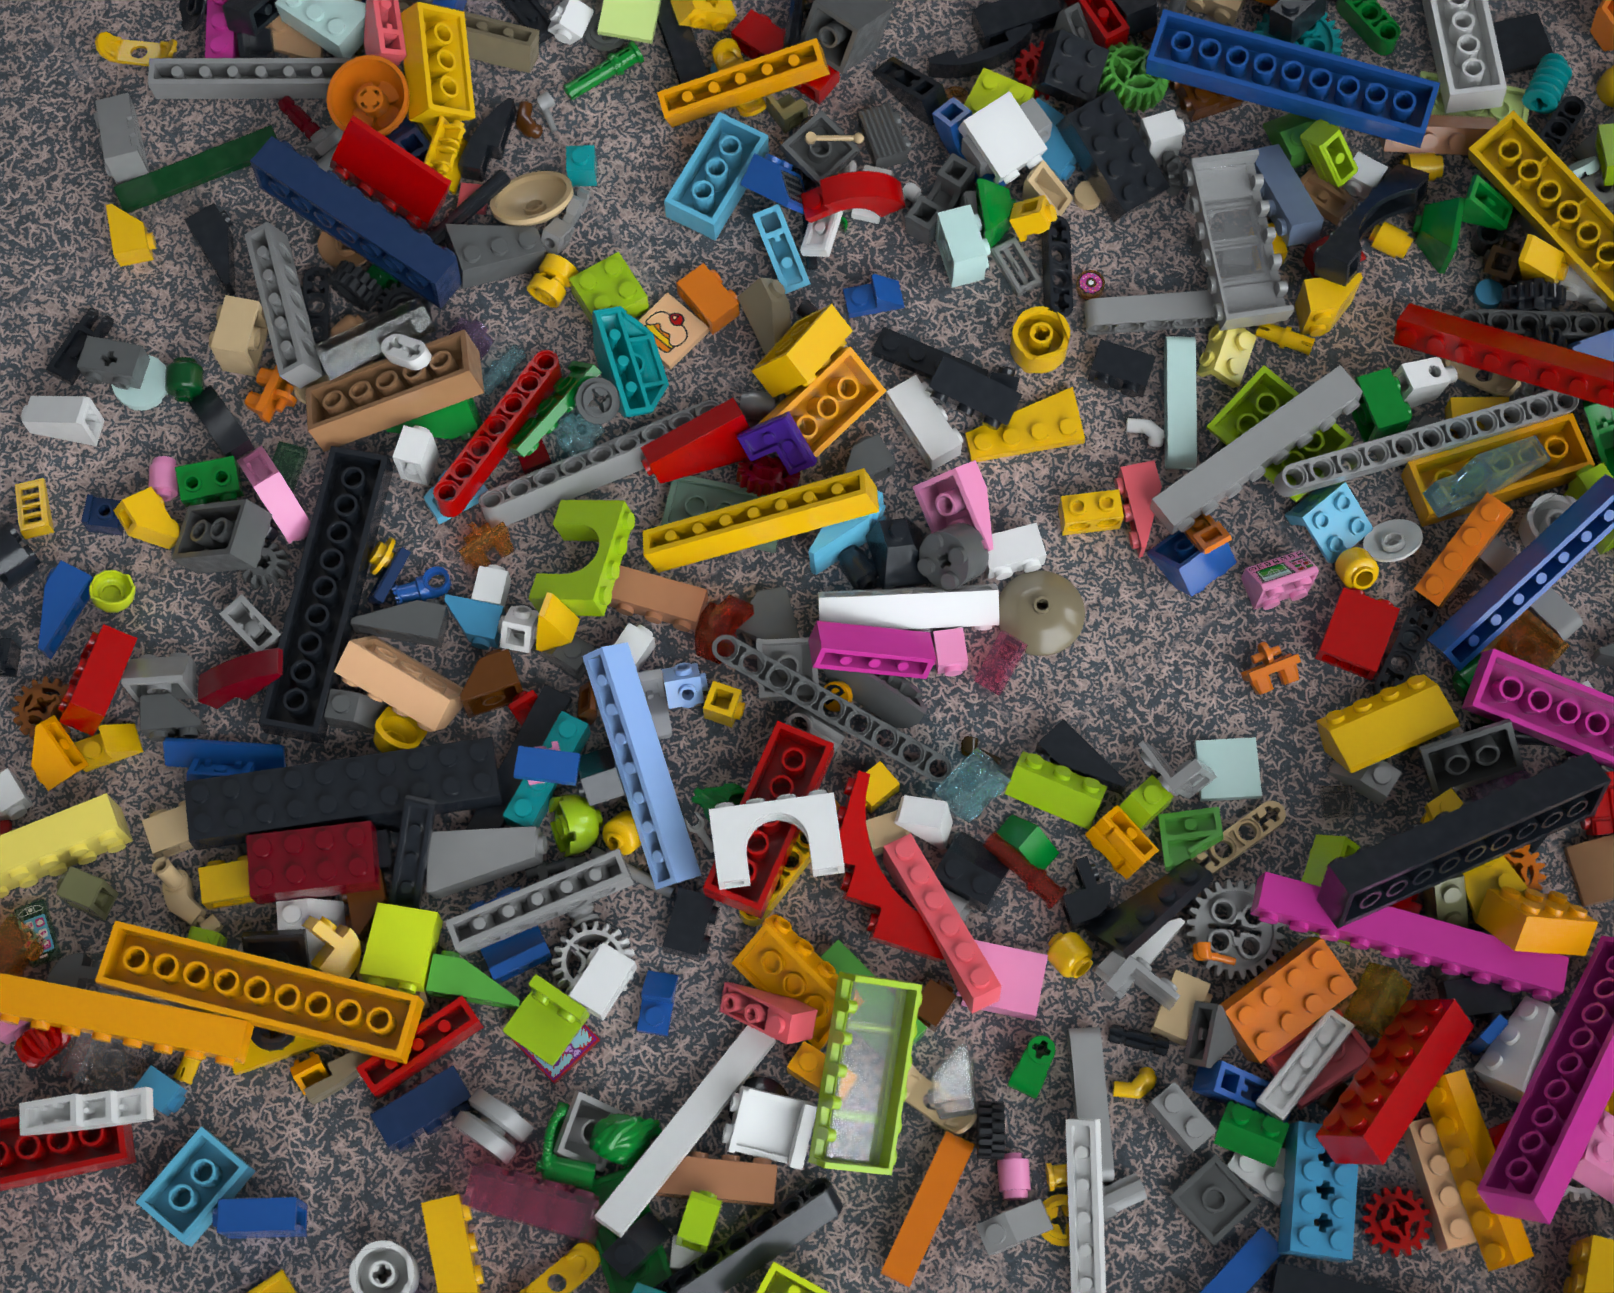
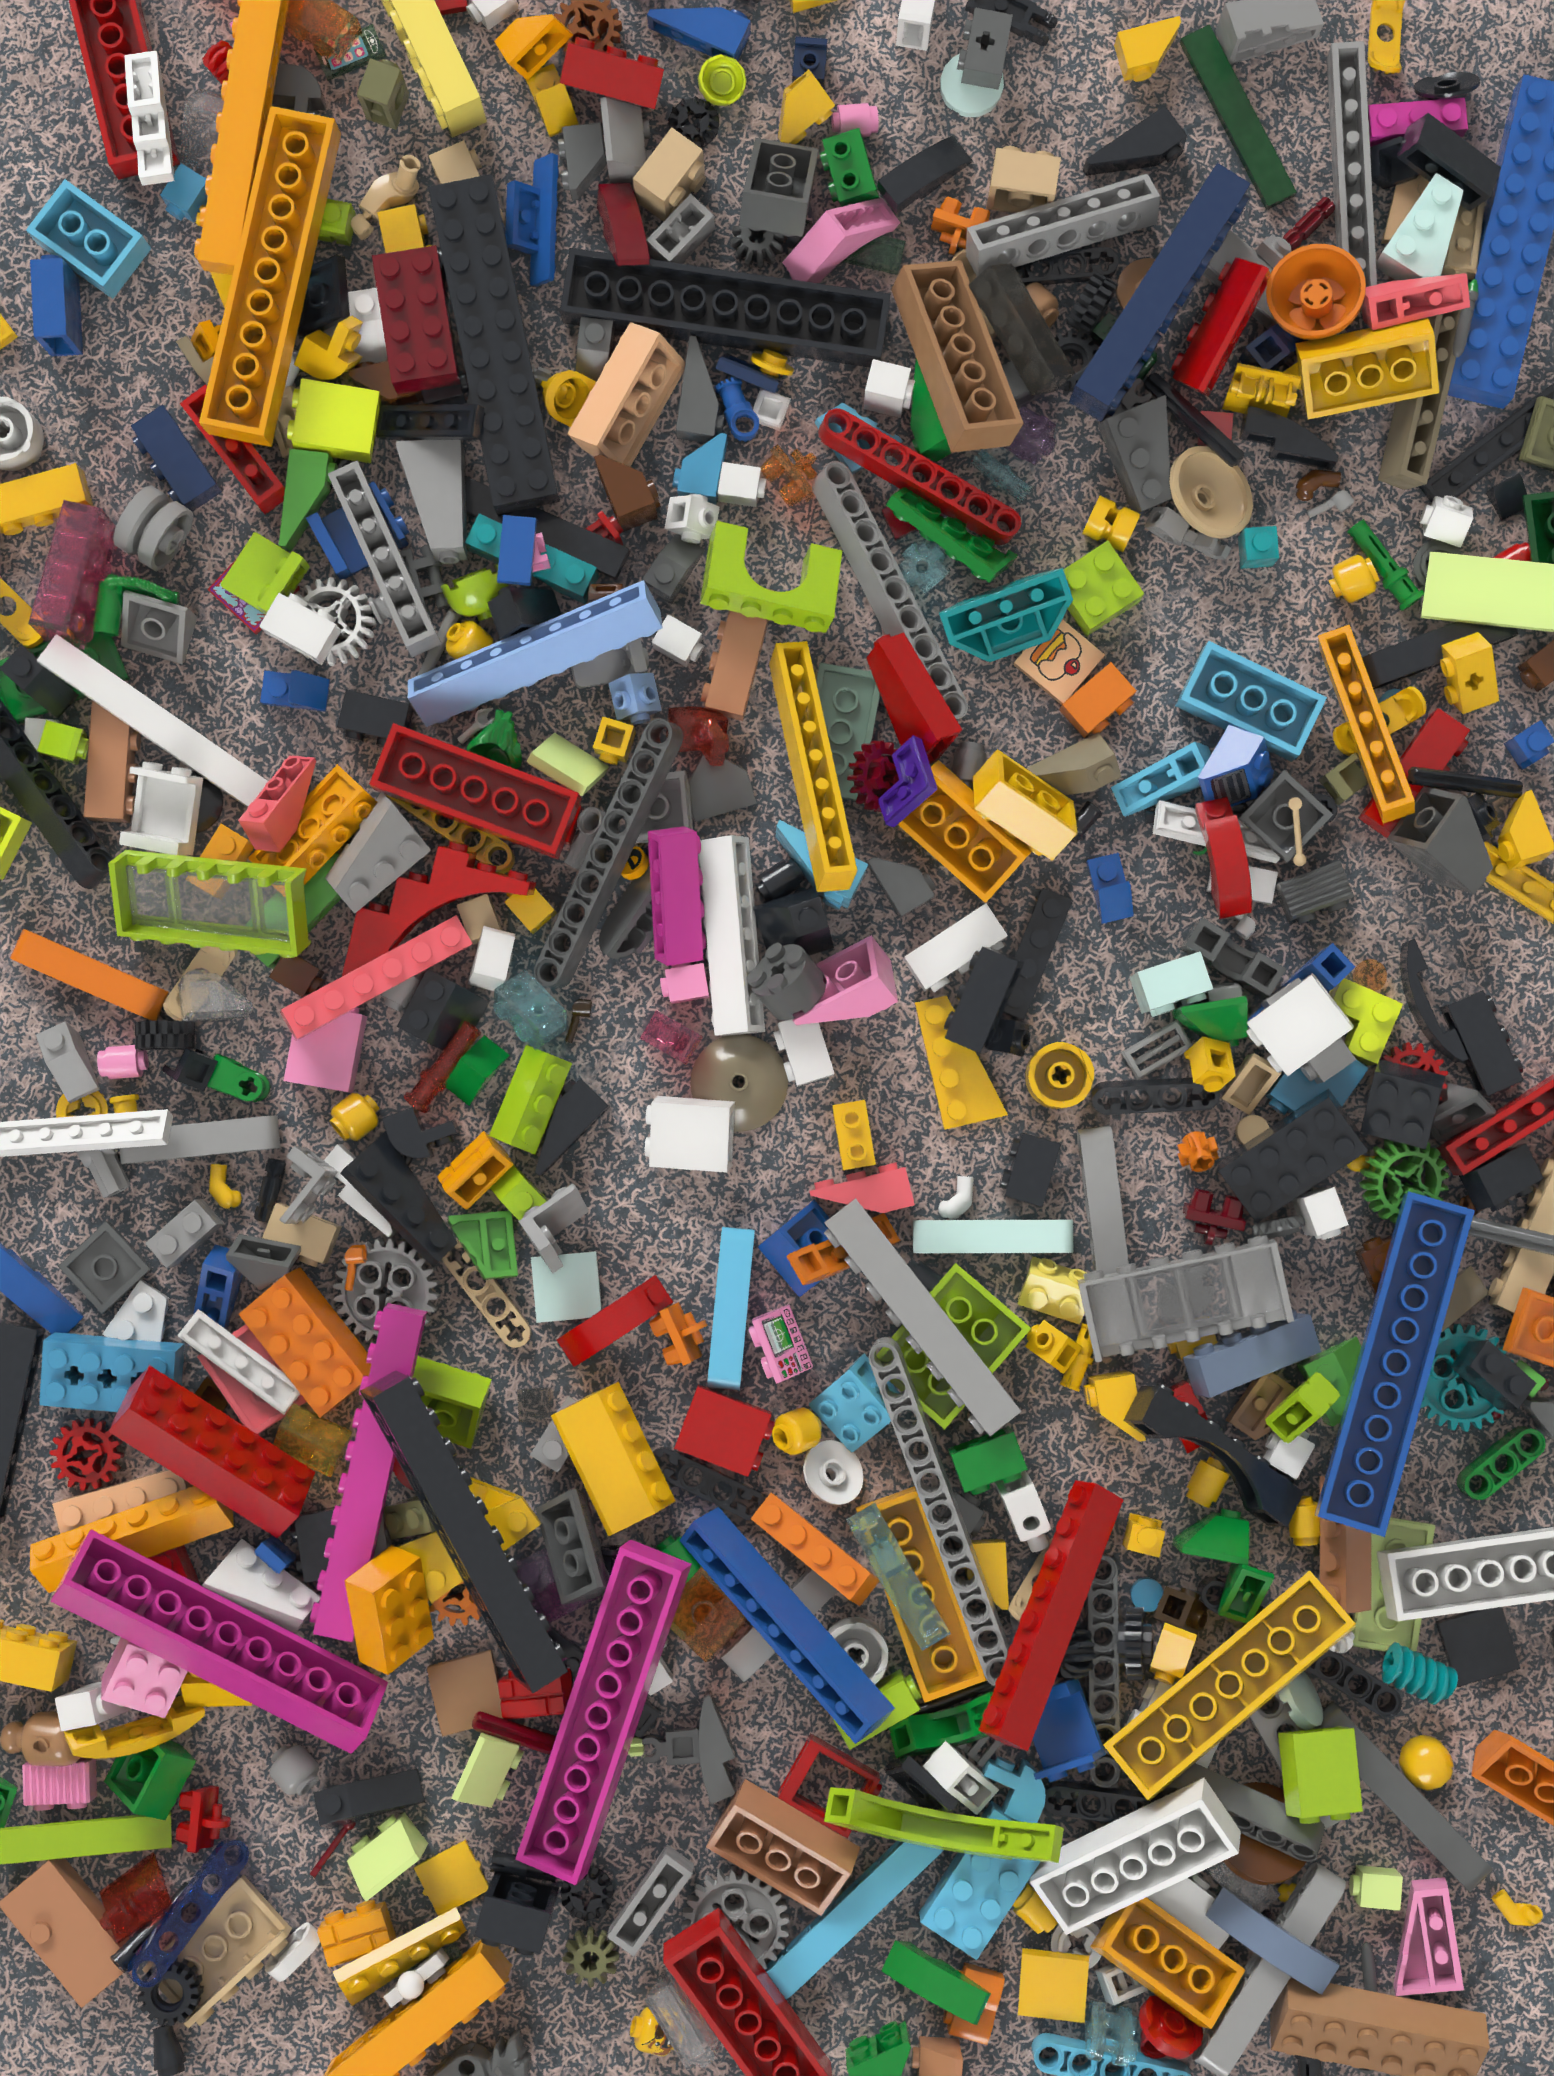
camera: 90 degrees right, 15 degrees up
(158, 625) = (707, 125): none -> black gear
(184, 379) = (972, 128): dark green head -> none
(198, 633) = (669, 175): none -> tan brick
(409, 346) = (991, 359): white beam -> none
(420, 561) = (771, 408): none -> white tile
(555, 624) = (689, 552): yellow slope -> none
(608, 407) = (951, 594): dark grey gear -> none
(614, 94) = (1354, 578): none -> yellow head
(623, 1137) = (149, 662): green hair -> none
(744, 745) = (567, 764): none -> yellowish green tile
(811, 814) = (466, 834): white arch -> none
(827, 914) = (376, 856): none -> light grey wedge
(912, 88) = (1379, 922): black slope -> none
(1024, 1103) = (193, 1069): none -> black panel
(1089, 648) = (690, 1134): none -> white brick
(1090, 284) = (1137, 1134): tile -> none
(1106, 234) = (1198, 1151): none -> orange gear
(1157, 235) = (1200, 1211): none -> dark red hips
(1246, 623) = (730, 1308): none -> medium azure beam
(1251, 1134) = (166, 1304): green brick -> none
(1265, 722) = (614, 1321): none -> red arch
(1283, 348) = (1052, 1346): none -> yellow brick
(1439, 290) = (1144, 1535): none -> yellow brick

